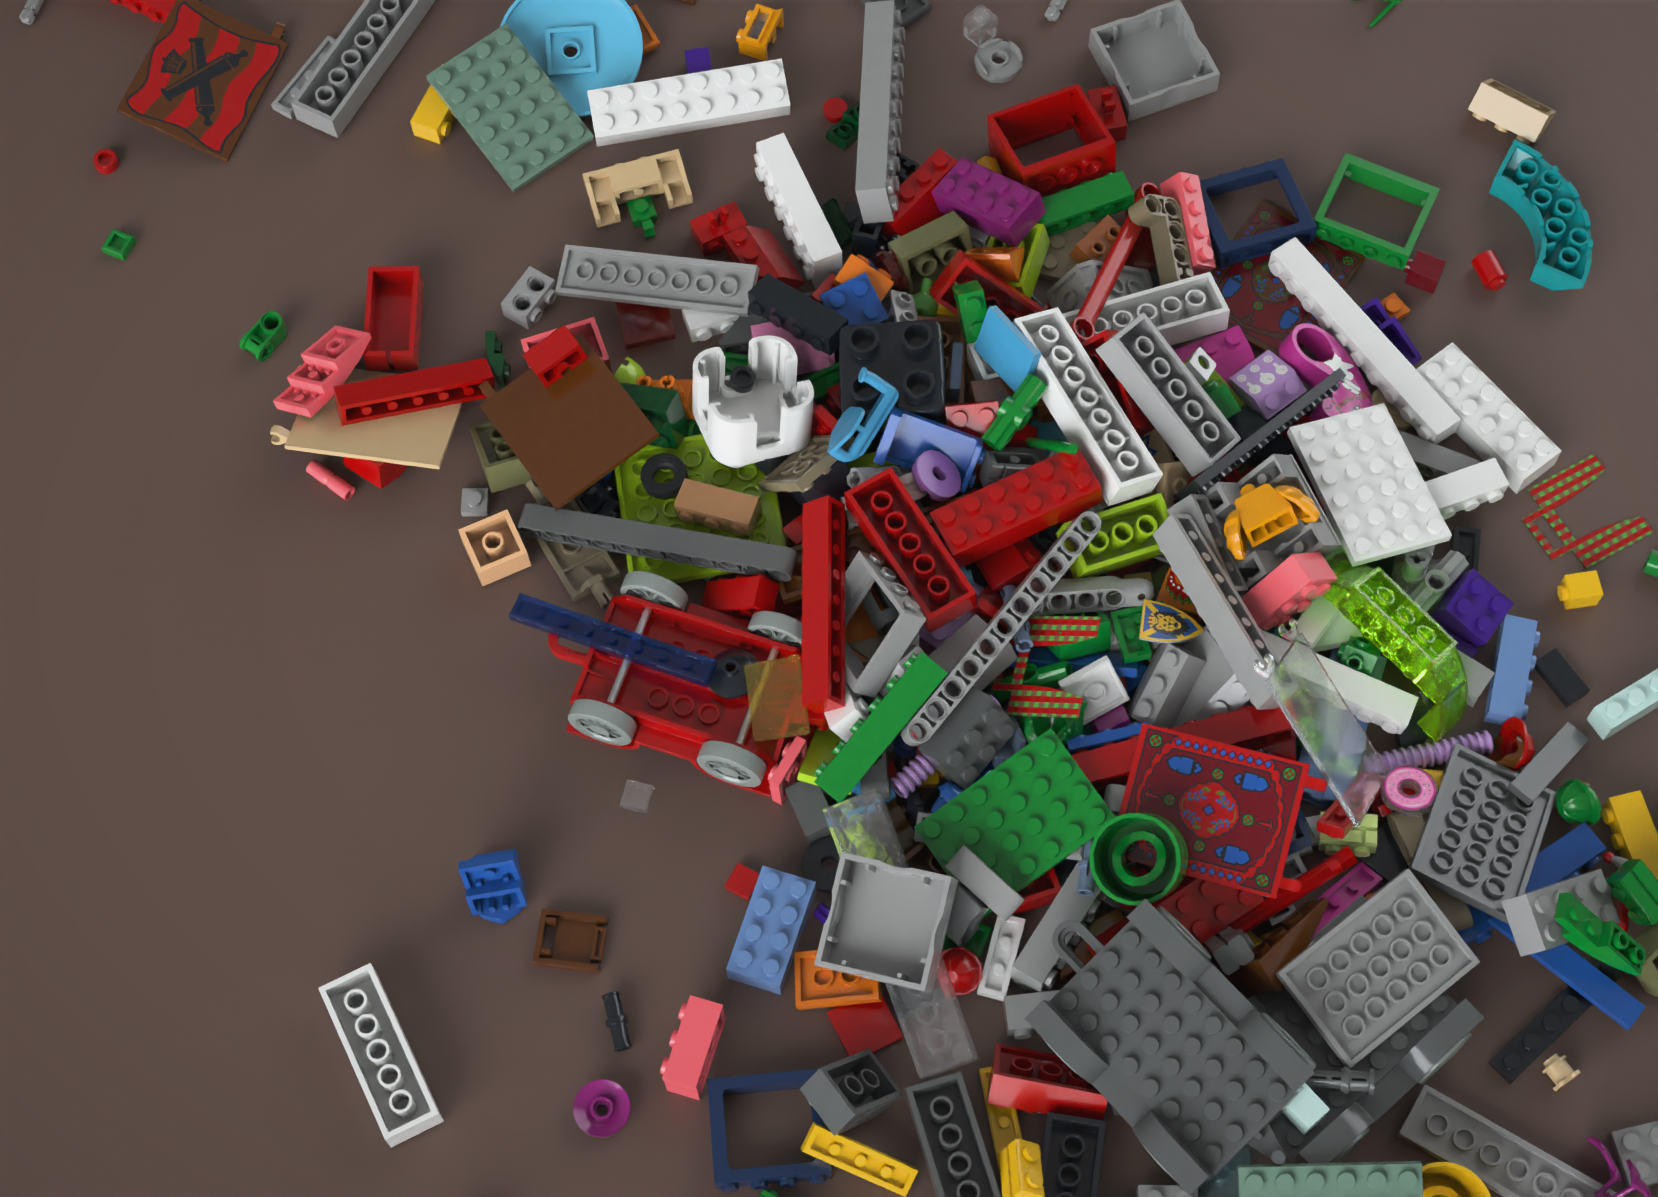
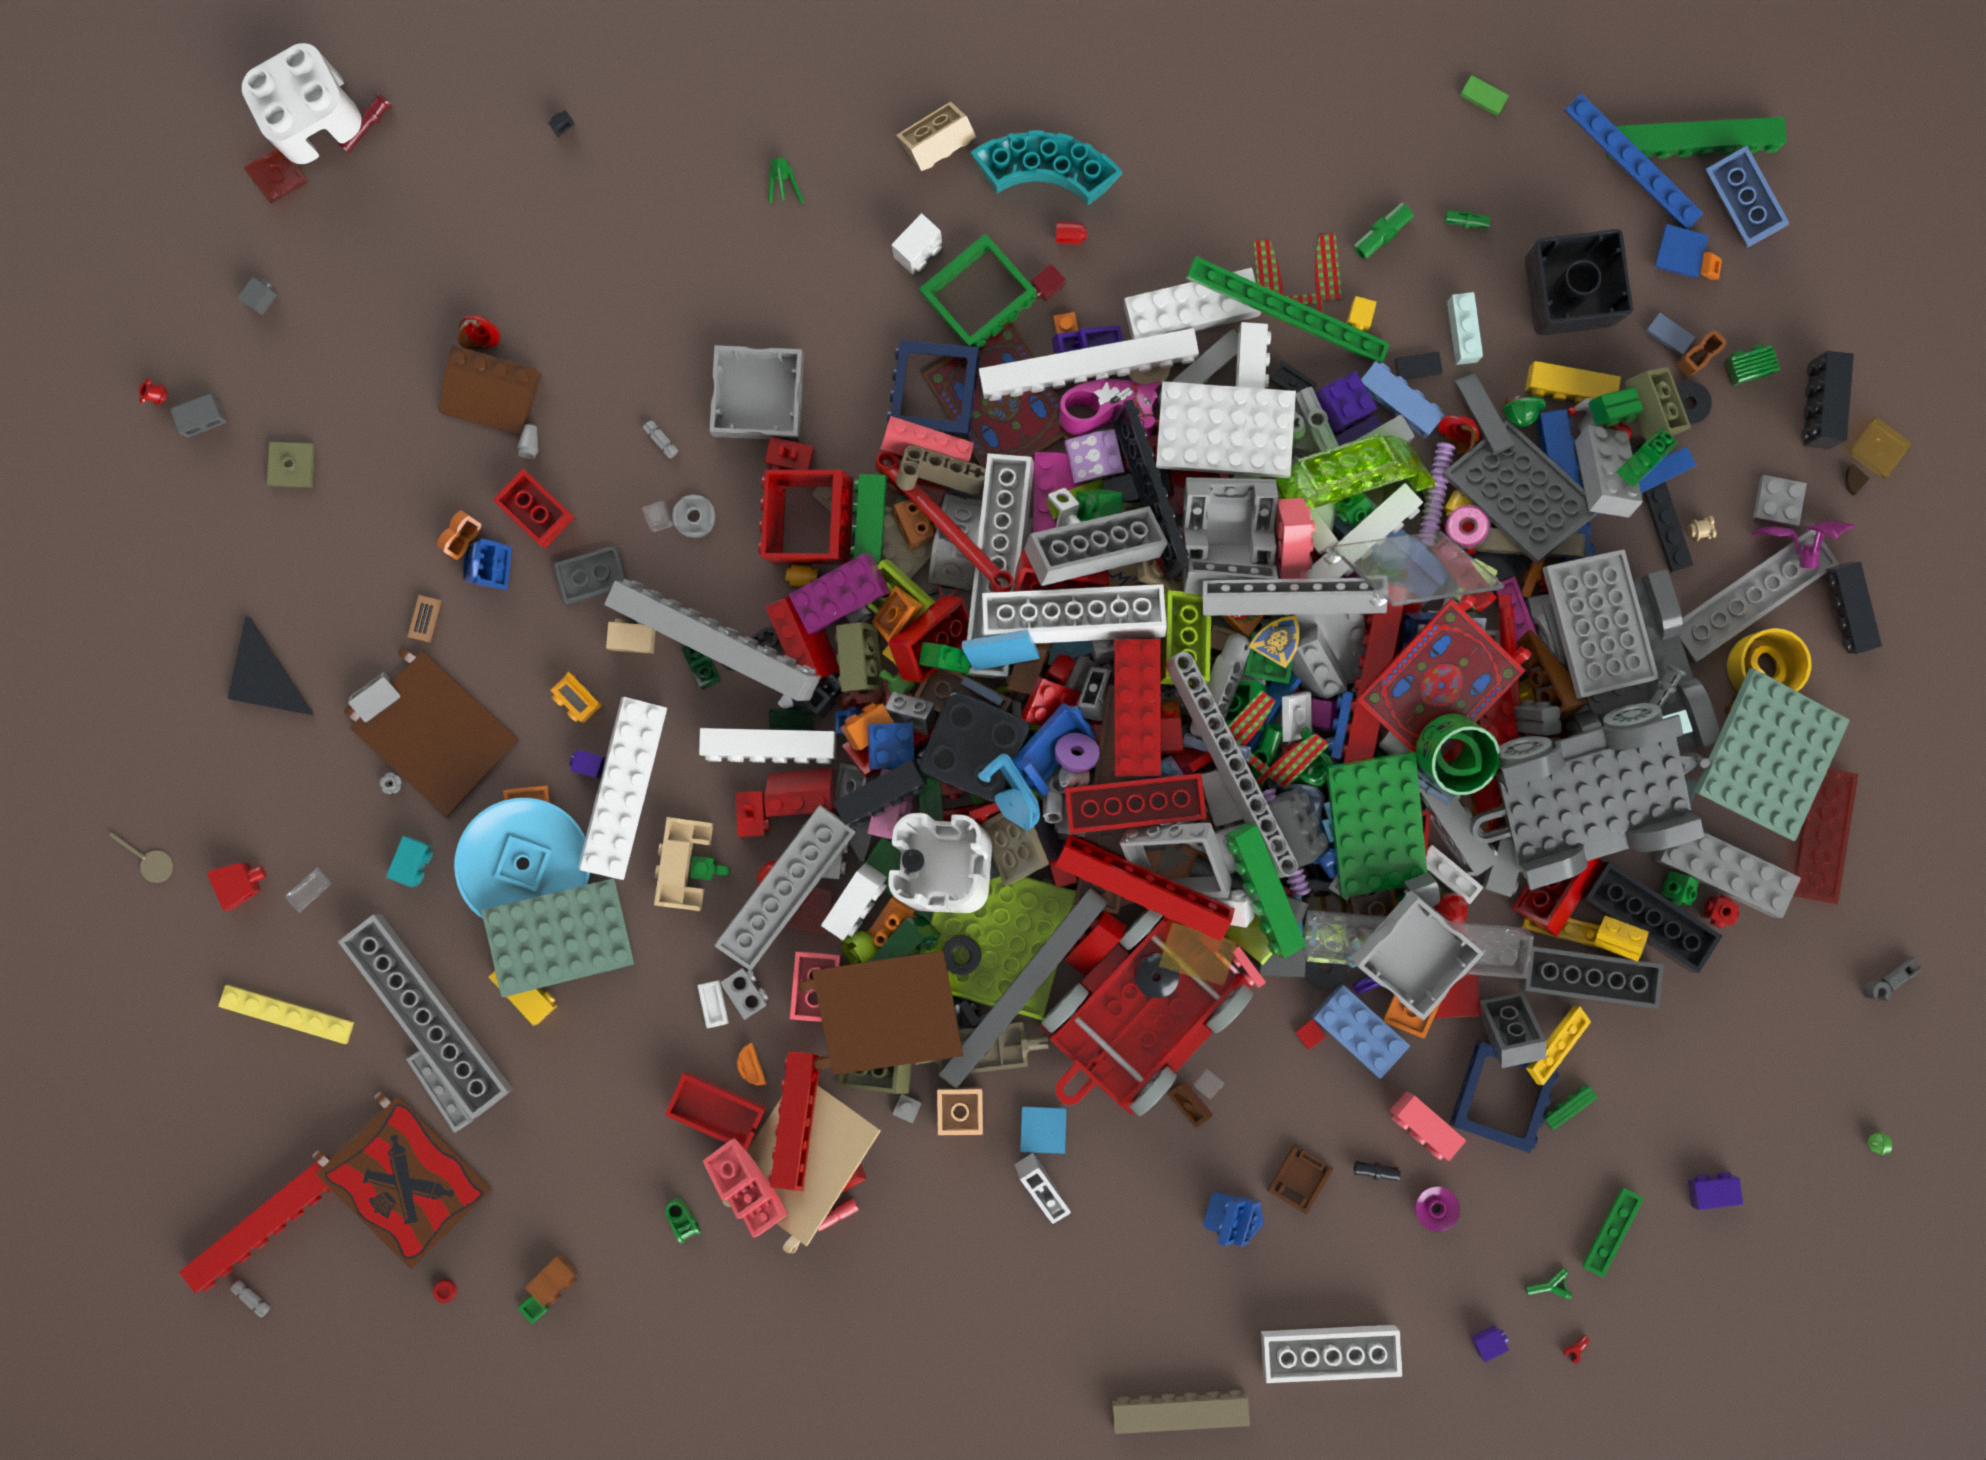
camera: 65 degrees left, 20 degrees up
(154, 246) = (551, 1280): none -> dark orange brick
(247, 920) = (1180, 1413): none -> dark tan brick
(444, 667) = (1042, 1188): none -> light grey slope
(455, 334) = (749, 1066): none -> orange plate
(499, 367) = (796, 1042): dark green slope -> none
(502, 277) = (713, 1004): none -> white tile
(509, 645) = (1043, 1129): none -> dark azure tile
(555, 355) = (827, 1001): red brick -> none
(605, 782) = (1190, 1103): none -> reddish brown plate
(613, 640) = (1091, 1056): clear blue tile -> none
(668, 347) = (855, 902): none -> white brick
(717, 507) = (1013, 928): medium nougat brick -> none
(834, 109) = (679, 670): red tile -> none
(844, 51) = (630, 637): none -> tan brick
(984, 883) = (1413, 868): light grey beam -> none
(1014, 413) = (1059, 671): green piece -> none
(1052, 445) = (1101, 656): green bar -> none
(1264, 514) = (1231, 527): light orange torso -> none
(1390, 132) = (917, 244): none -> white brick
(1537, 504) = (1287, 310): none -> green plate

